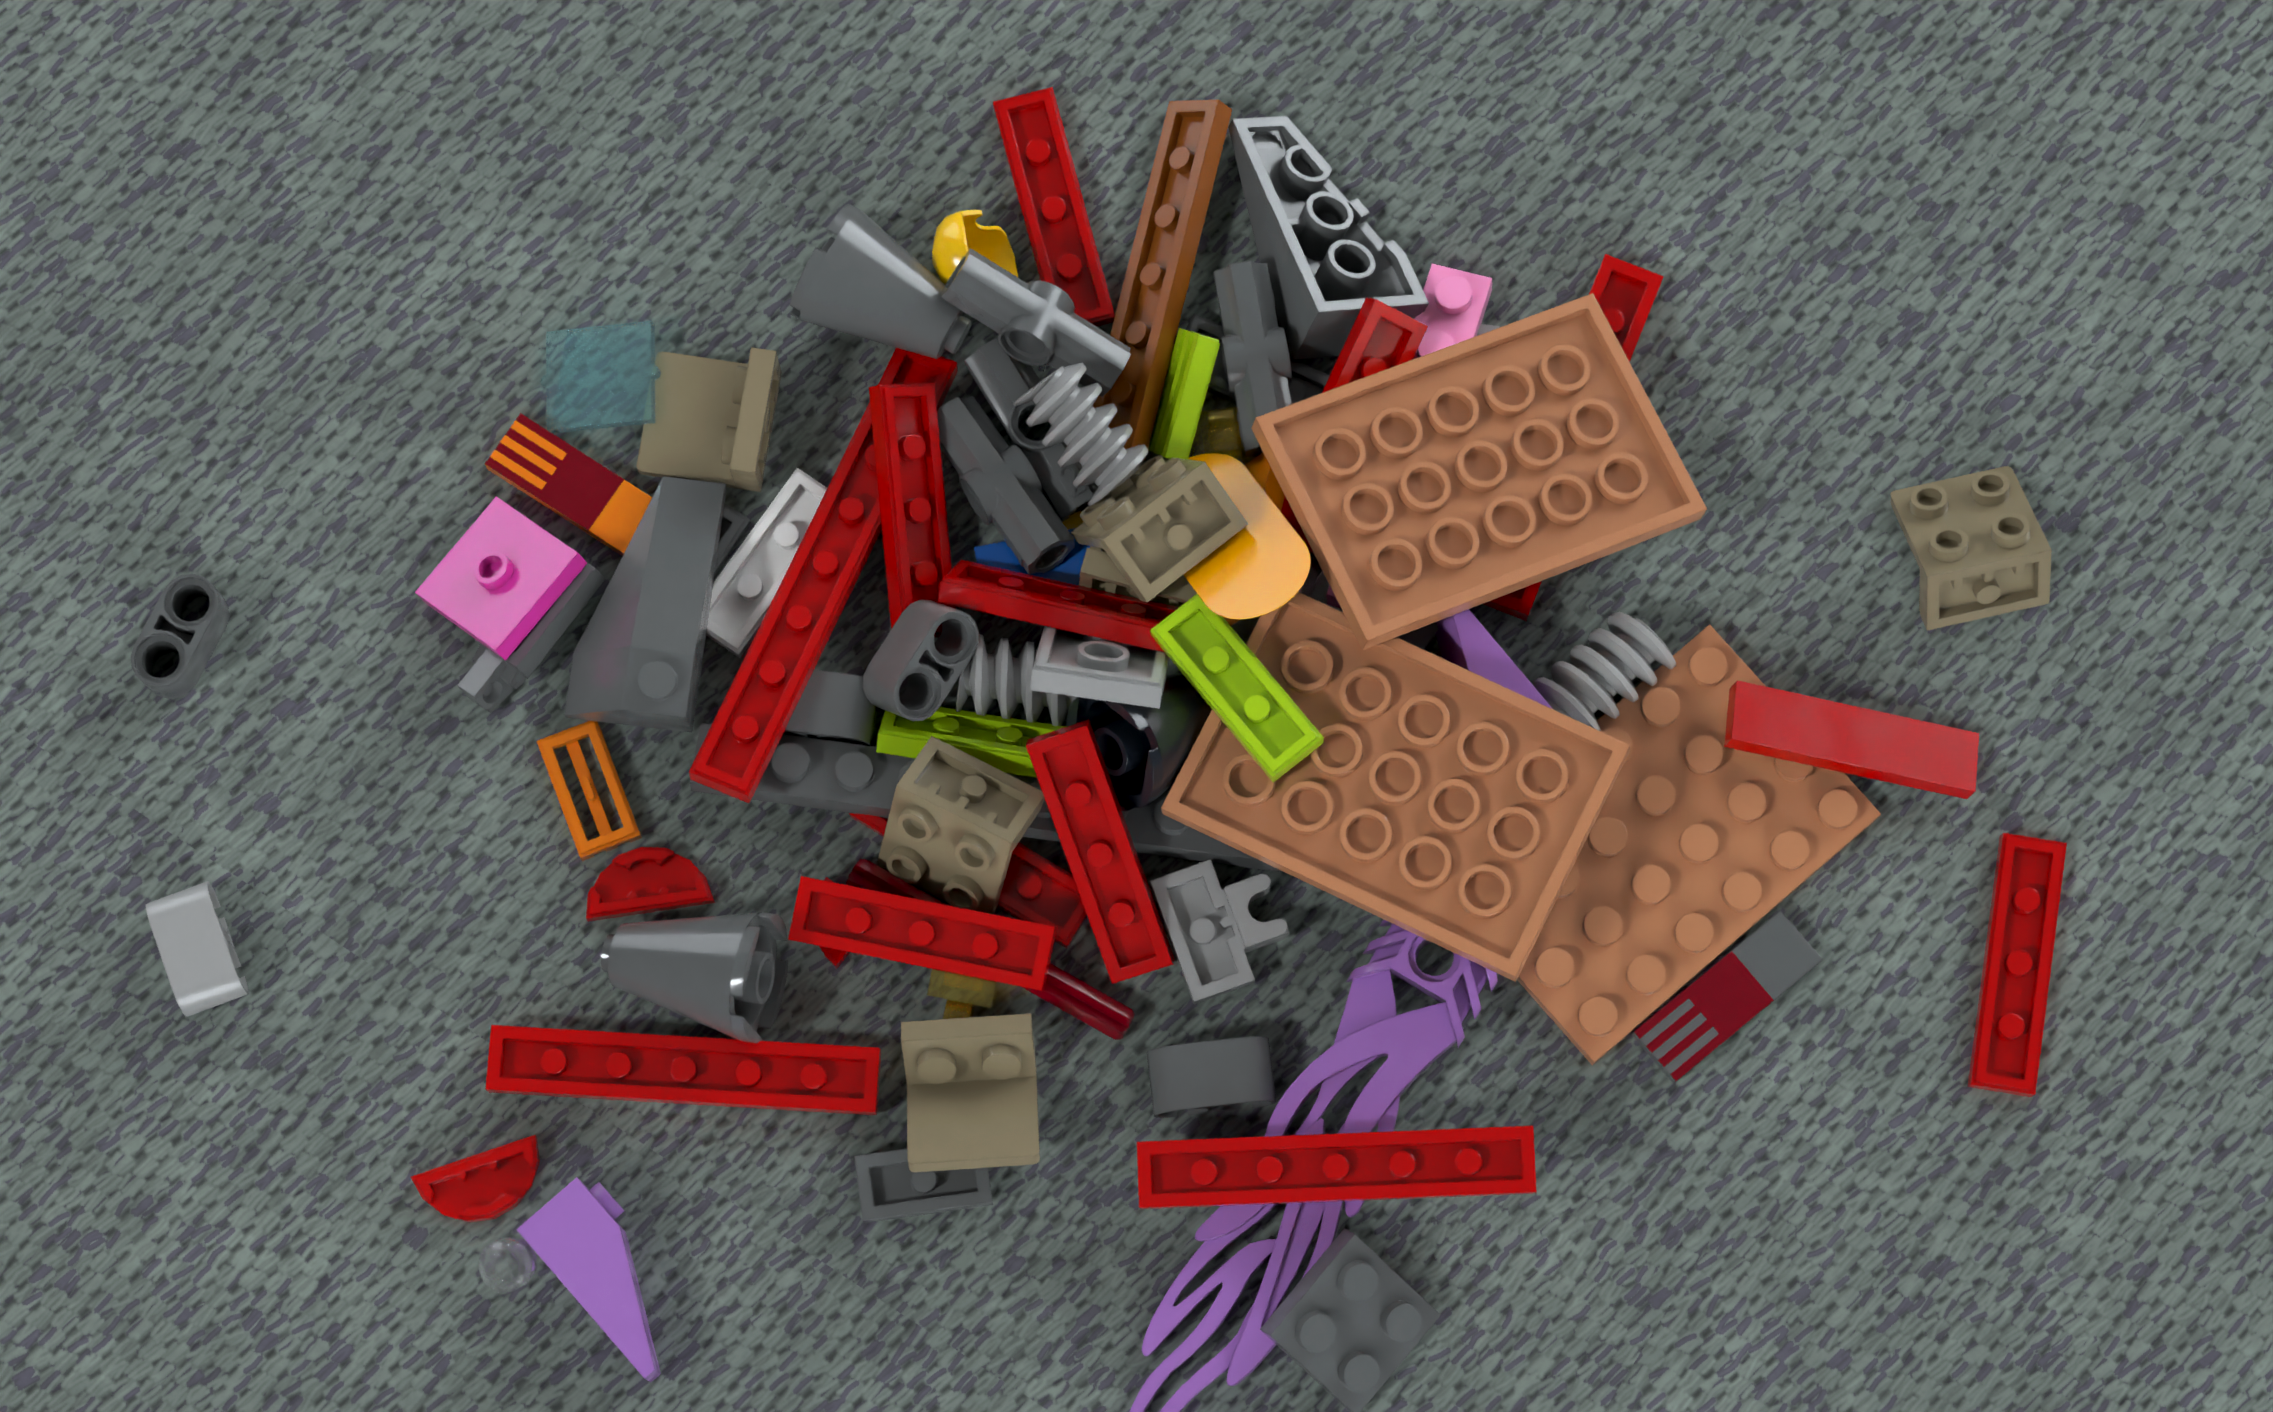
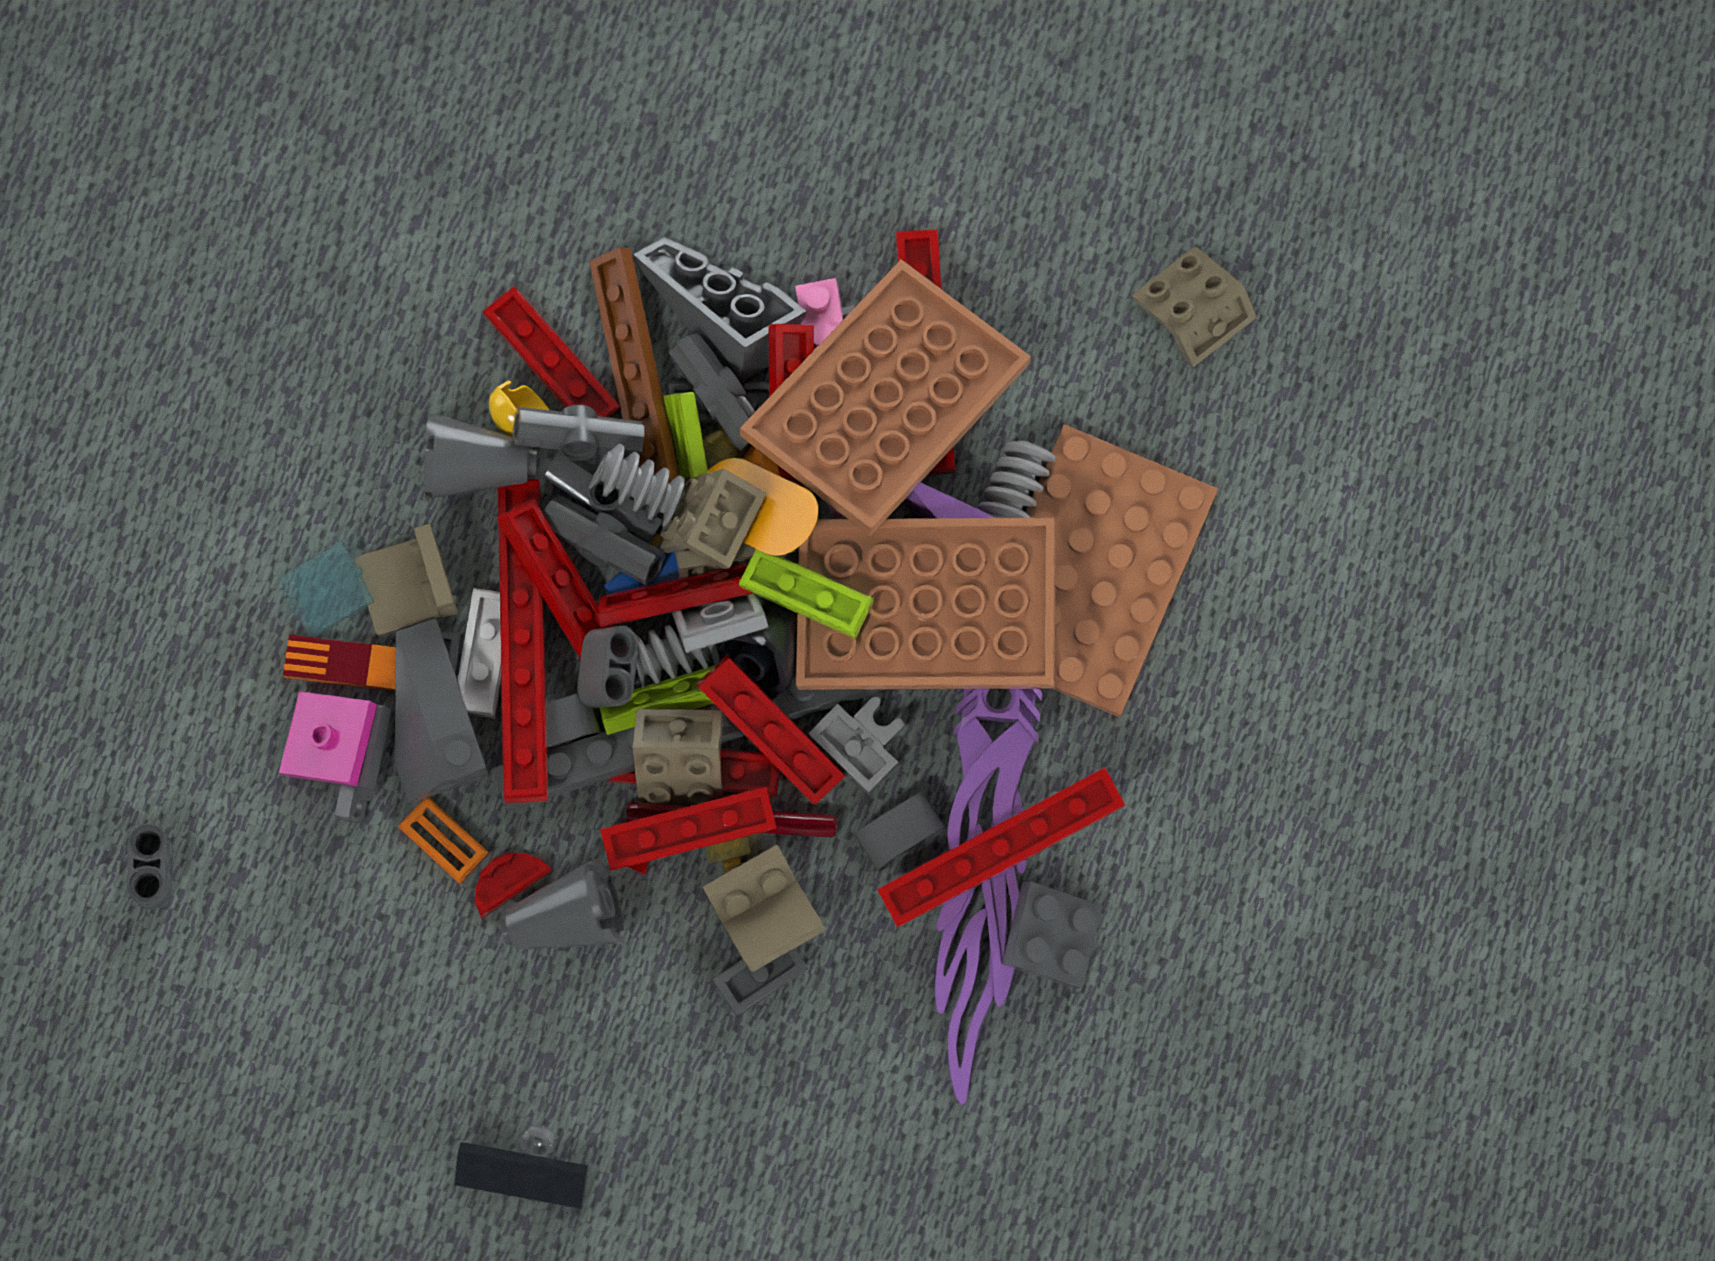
camera: 25 degrees left, 0 degrees up
(196, 949) = (255, 1048): light grey beam -> none
(464, 1297) = (521, 1175): none -> black tile
(483, 1183) = (497, 1104): red tile -> none
(594, 1262) = (583, 1114): medium lavender slope -> none
(683, 1070) = (584, 978): red plate -> none
(1726, 997) = (1179, 639): tile -> none
(1851, 740) = (1180, 453): red tile -> none
(2017, 965) = (1339, 539): red tile -> none

